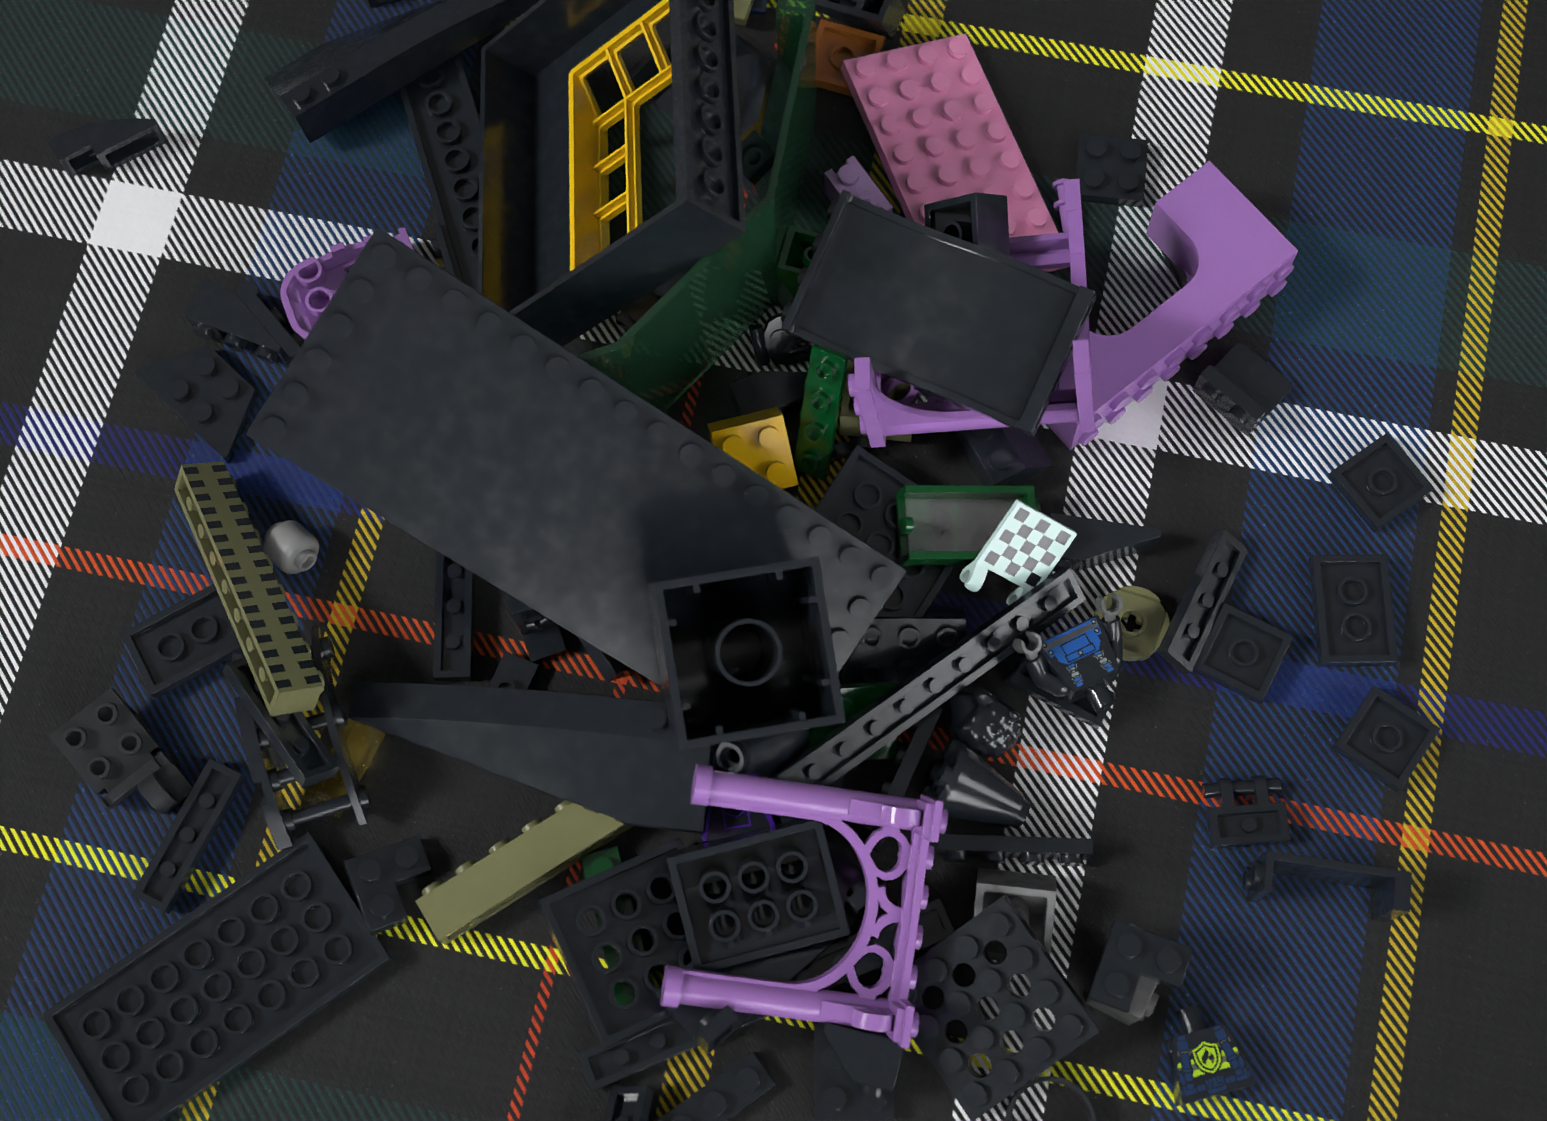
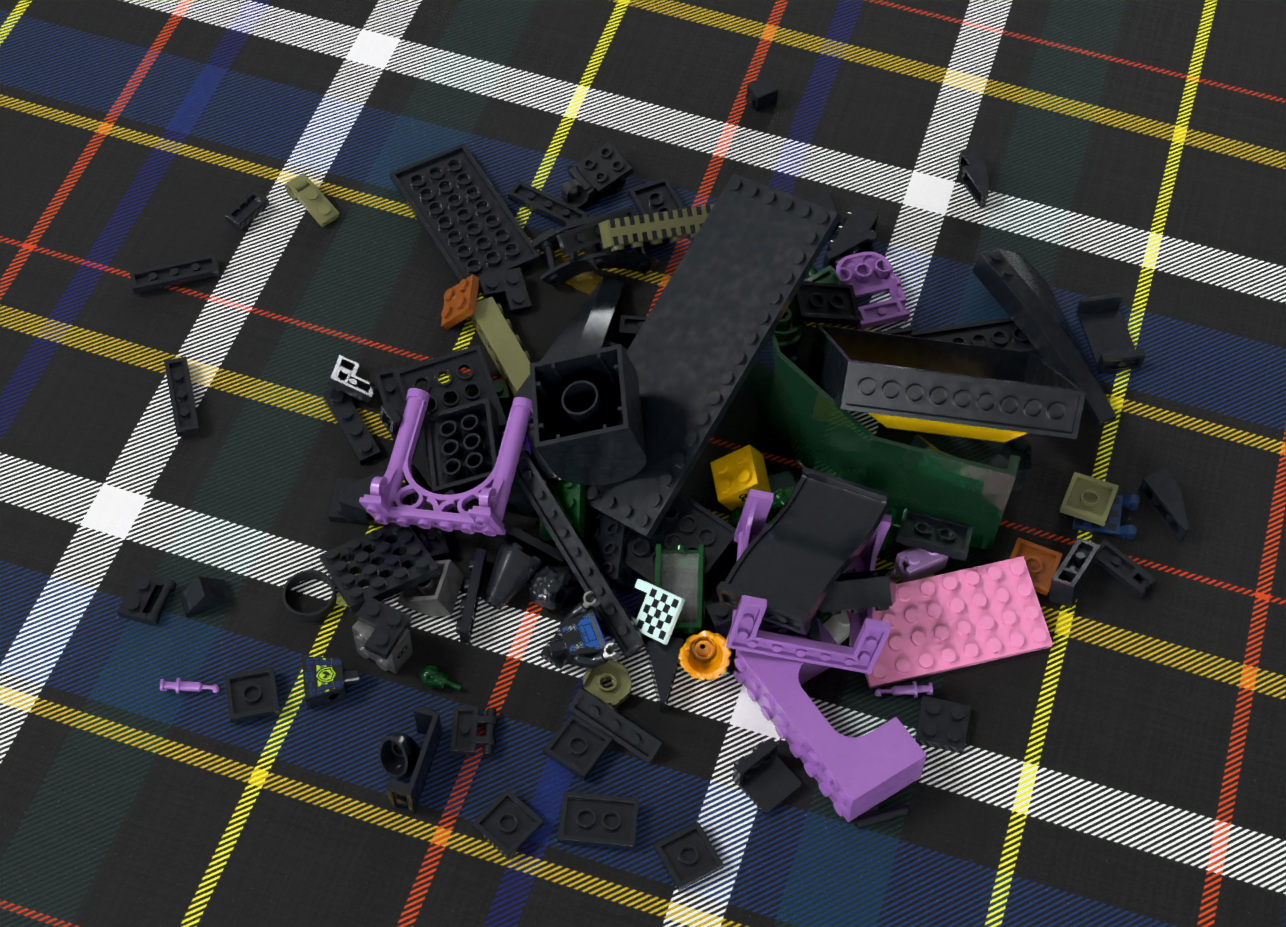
camera: 90 degrees right, 15 degrees down
(428, 957) = (460, 302): none -> dark orange plate
(833, 159) = (934, 534): none -> black plate
(1075, 478) = (705, 661): none -> light orange hair
(1167, 885) = (433, 676): none -> dark green piece
(1315, 916) = (398, 754): none -> black hat

